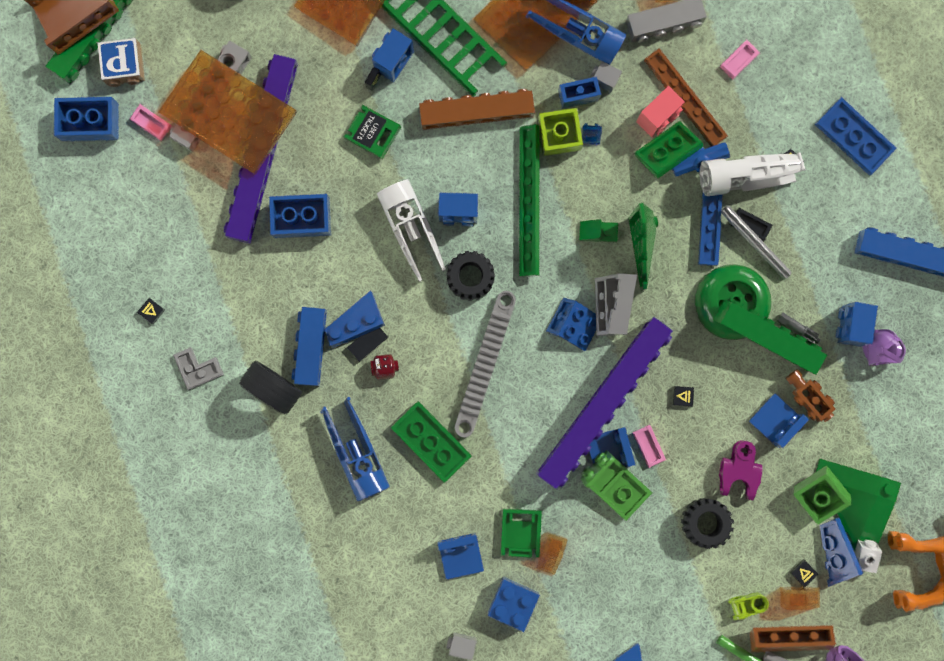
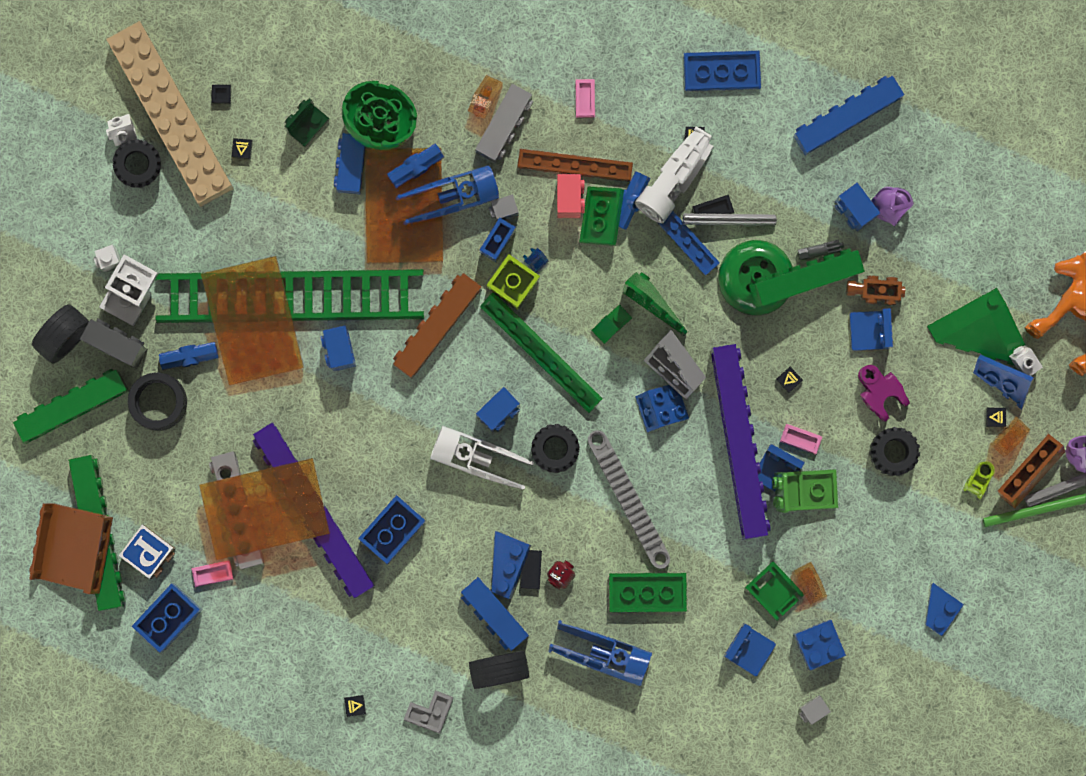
camera: 45 degrees left, 0 degrees up
(368, 129) = (375, 417): container -> none
(372, 78) = (339, 379): black tile -> none
(822, 495) = (952, 351): bright green brick -> none

